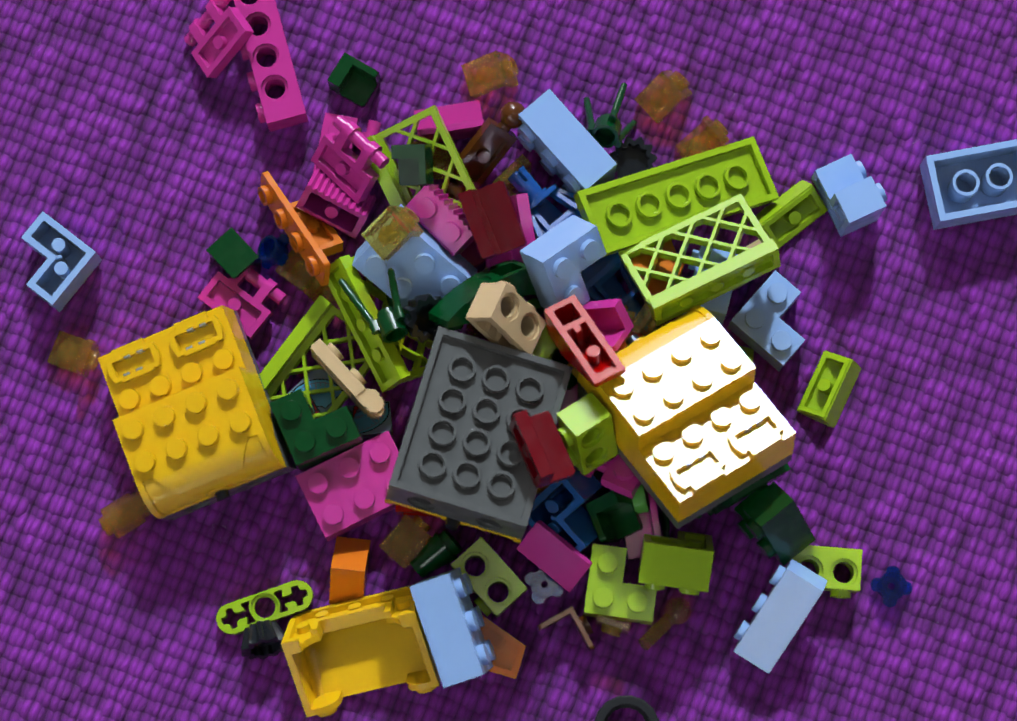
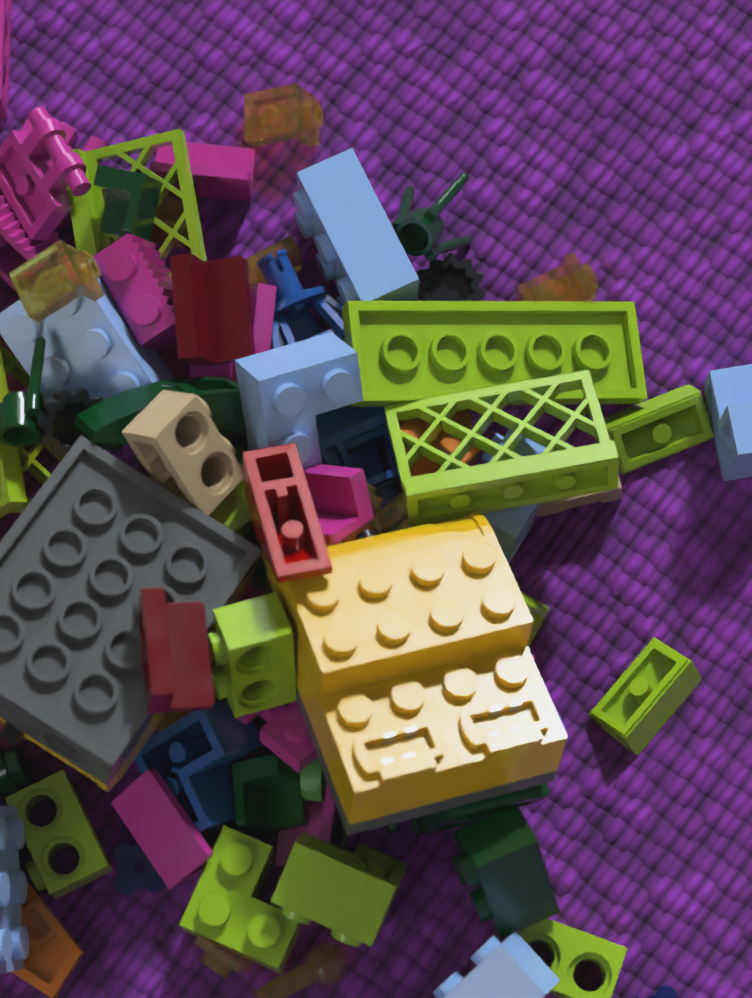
camera: 15 degrees right, 5 degrees down
(354, 80) = (86, 75): dark green panel -> none
(487, 148) = (247, 210): reddish brown plate -> none
(580, 622) = (174, 940): reddish brown bracket -> none
(664, 94) = (521, 209): clear yellow bracket -> none
(761, 325) = (570, 571): light blue brick -> none

